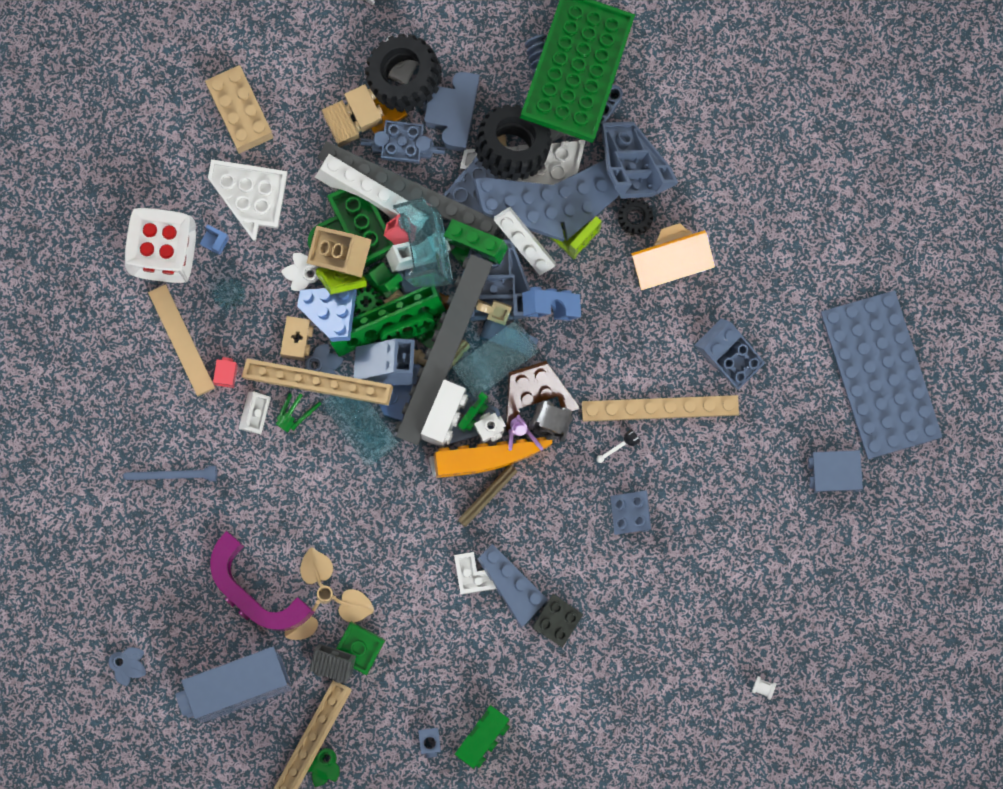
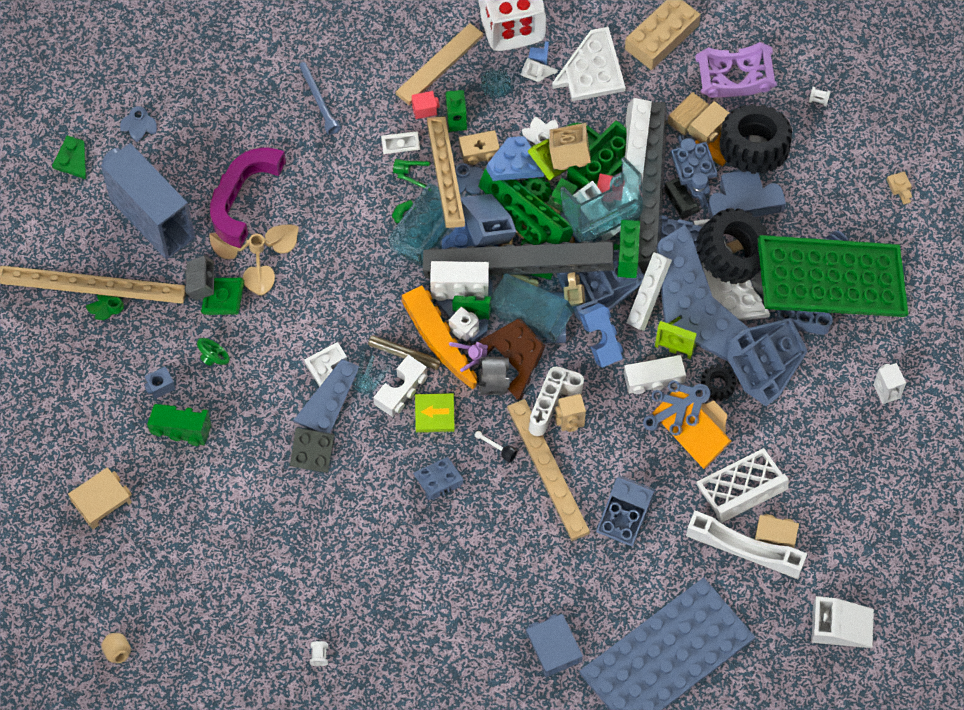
camera: 70 degrees right, 15 degrees down
(138, 745) = (71, 157): none -> green wing
(231, 248) = (536, 70): none -> white tile
(246, 345) = (456, 106): none -> green torso
(305, 33) = (747, 86): none -> lavender fence
(332, 442) = (400, 209): none -> green arm
(419, 683) = (210, 354): none -> green piece
(430, 169) = (681, 198): none -> pearl dark grey hinge
(506, 544) = (364, 384): none -> clear light blue plant
(516, 496) = (392, 399): none -> white arch
(561, 491) = (434, 412): none -> lime tile
(598, 379) = (557, 382): none -> white beam
(606, 271) = (654, 374): none -> white brick
(619, 365) = (570, 413): none -> tan brick
(651, 263) = (679, 406): none -> sand blue plant
(701, 63) = (889, 383): none -> white brick
(760, 235) = (748, 499): none -> white fence
(804, 229) = (776, 531): none -> tan brick
(808, 260) = (776, 557): none -> white arch
(912, 209) = (842, 623): none -> white slope

